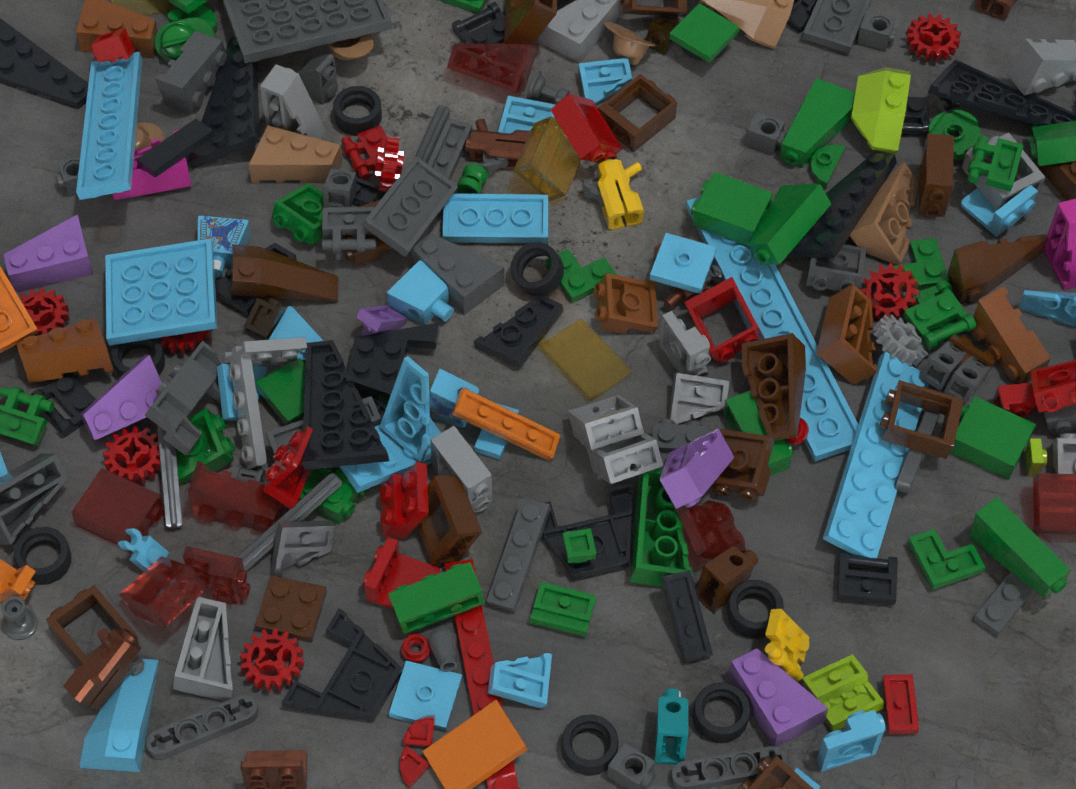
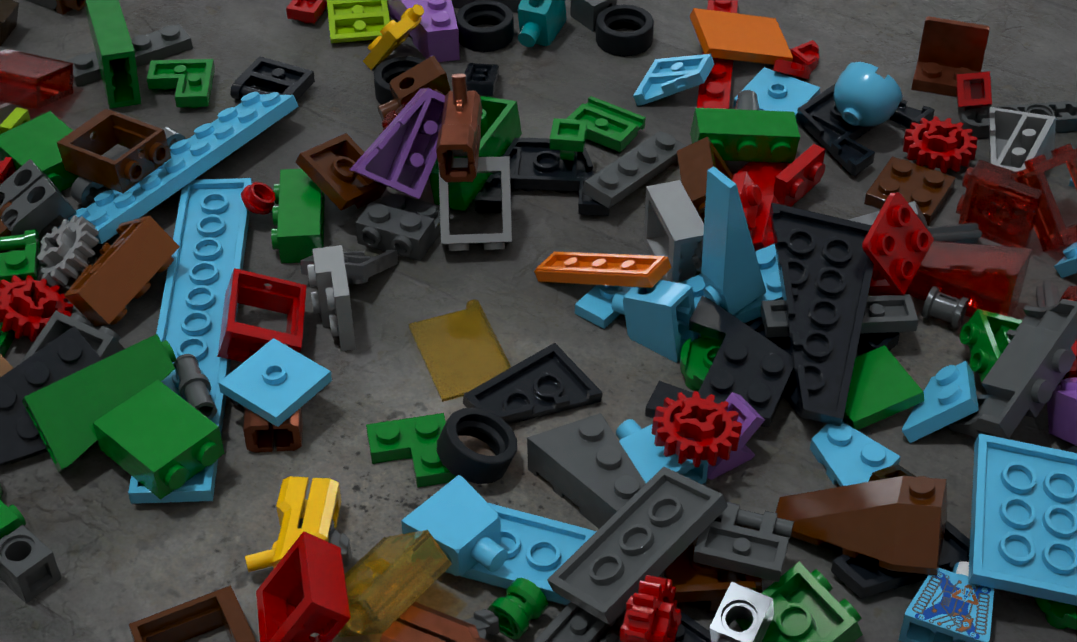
camera: 160 degrees left, 15 degrees down
(245, 395) = (912, 385): light grey bracket -> none
(248, 726) = (974, 90): none -> red brick
(341, 665) = (865, 96): none -> medium azure cylinder
(397, 291) = (693, 429): none -> red gear
(522, 199) = (461, 526): none -> medium azure torso
(613, 422) = (478, 199): light grey window -> none
(626, 304) = (377, 380): dark orange plate -> none
(641, 439) = (459, 132): none -> copper piece
(735, 252) = (194, 385): none -> dark grey pin
(776, 381) = (250, 225): reddish brown wedge -> none

